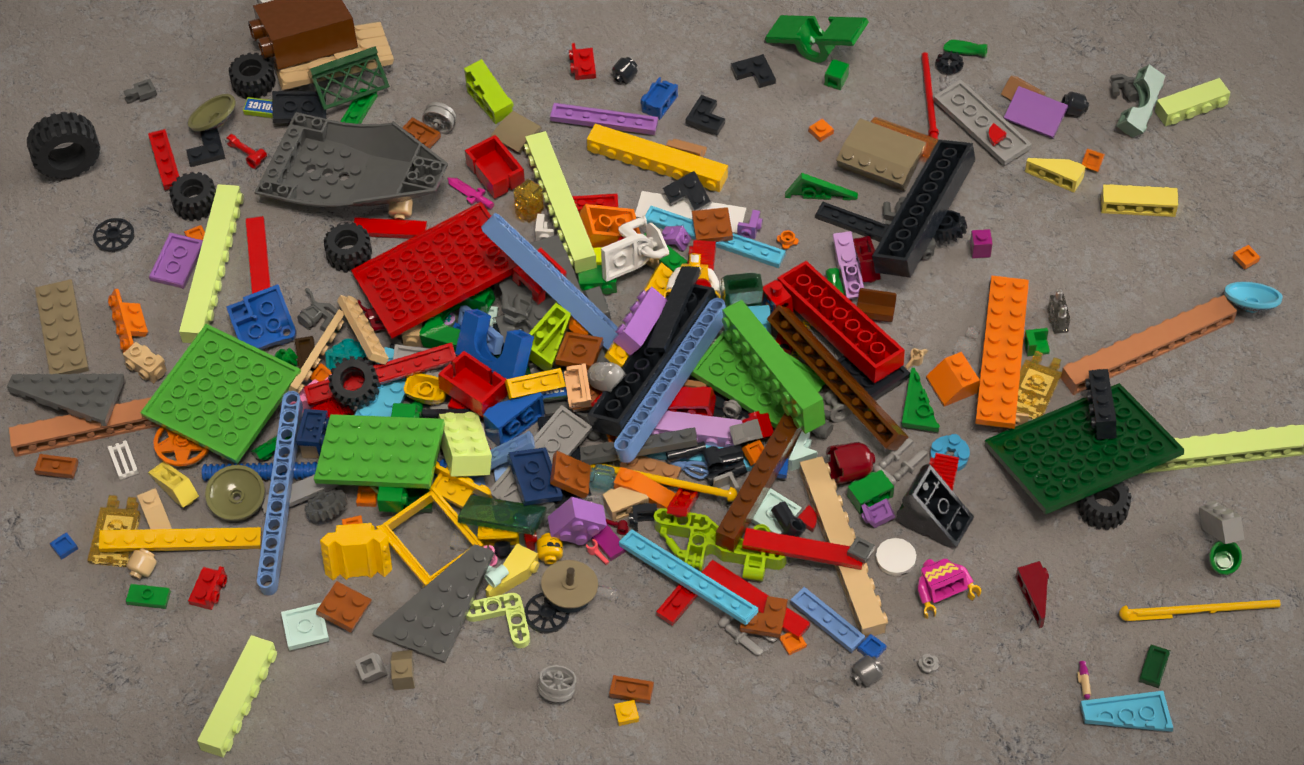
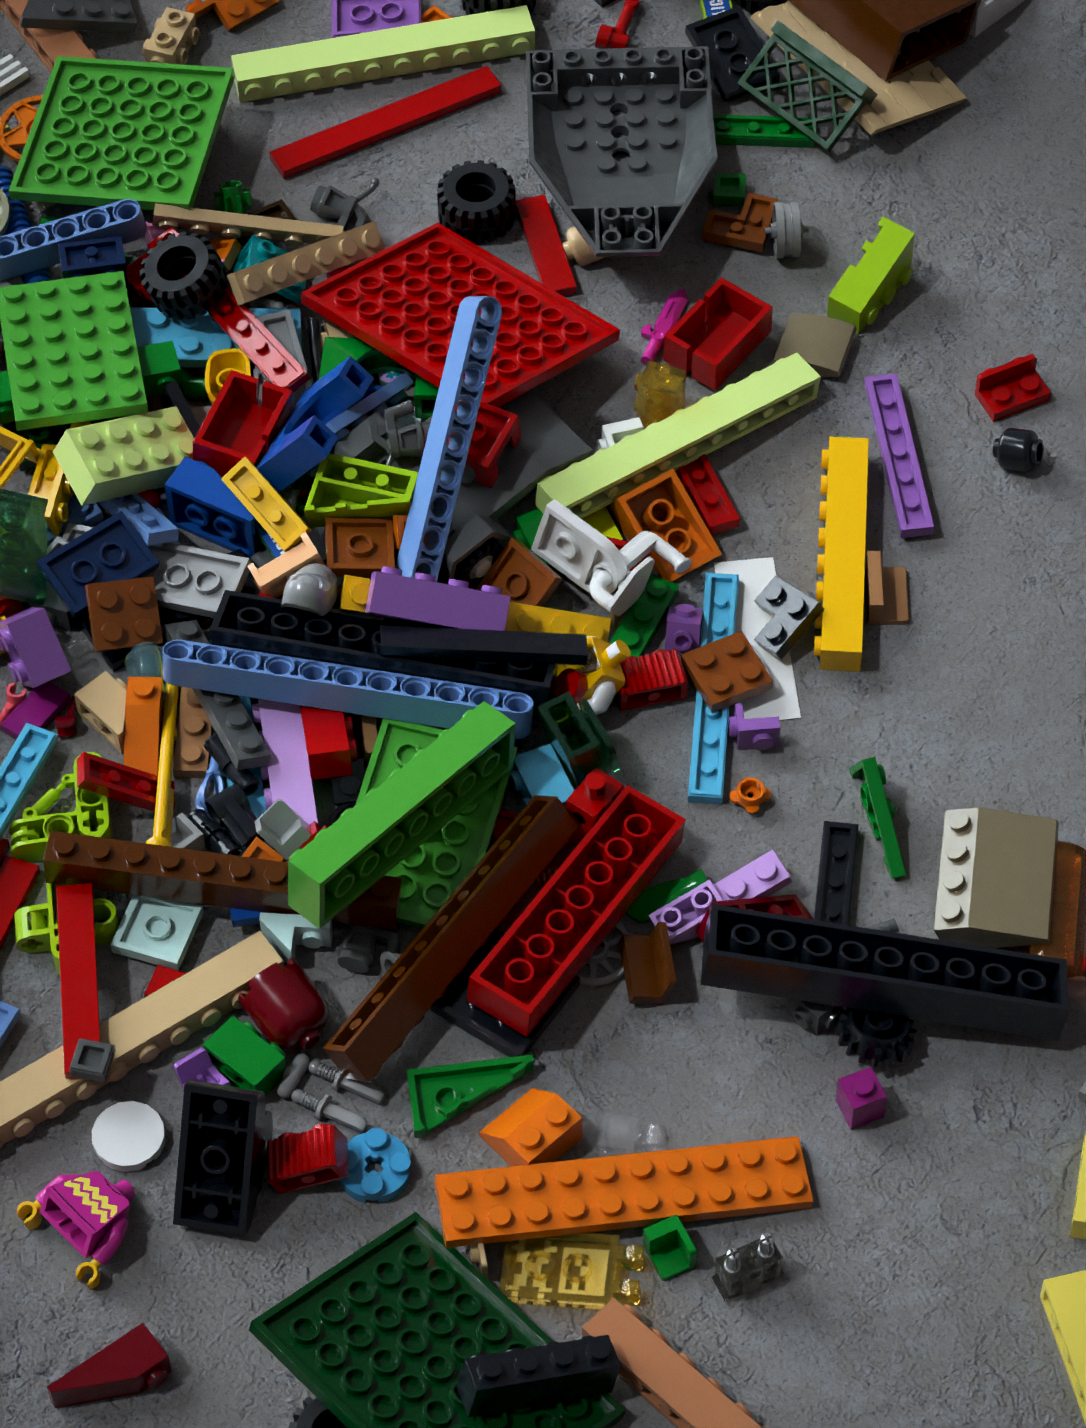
camera: 70 degrees right, 0 degrees up
(262, 319) = (288, 145): blue slope -> none
(620, 294) = (521, 575): none -> dark orange plate
(641, 513) = (90, 734): black bracket -> none
(659, 98) = (980, 518): blue hinge -> none
(702, 116) = (972, 588): black plate -> none
(731, 408) = (344, 801): light grey plate -> none
(789, 523) = (132, 943): black piece -> none
(821, 130) = (1026, 780): orange plate -> none
(916, 357) = (566, 1062): tan piece -> none

